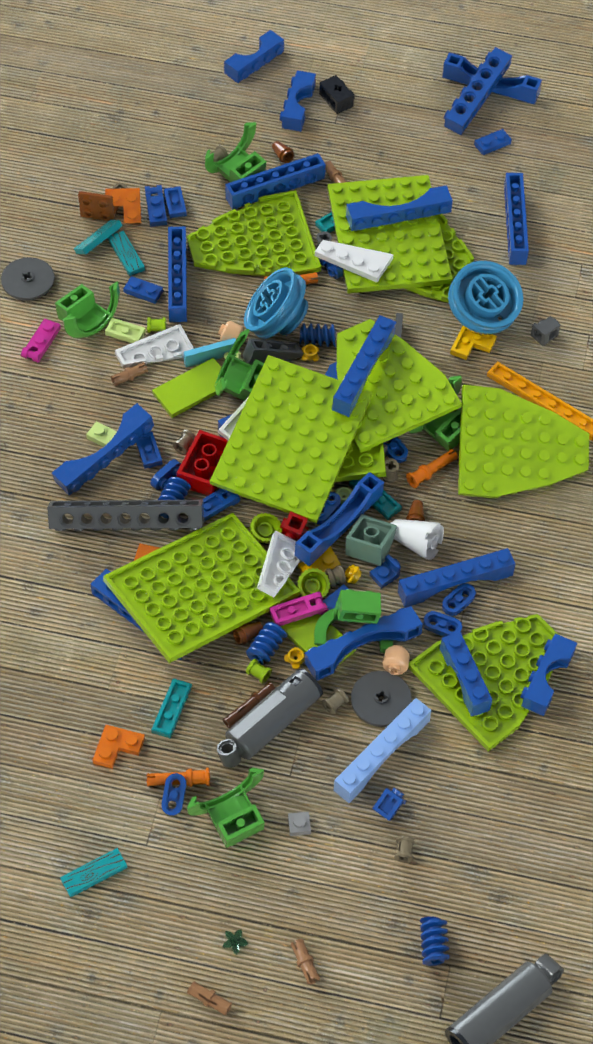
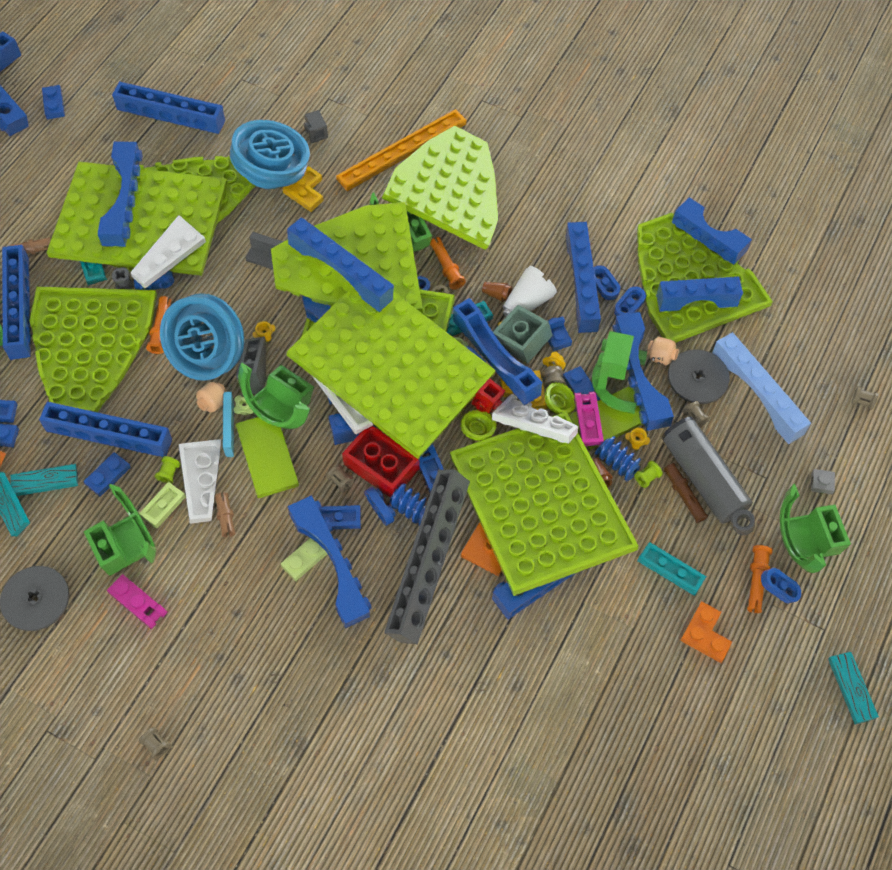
camera: 75 degrees left, 5 degrees up
(318, 334) = (248, 313): blue piece -> none
(389, 803) = (816, 397): blue bracket -> none

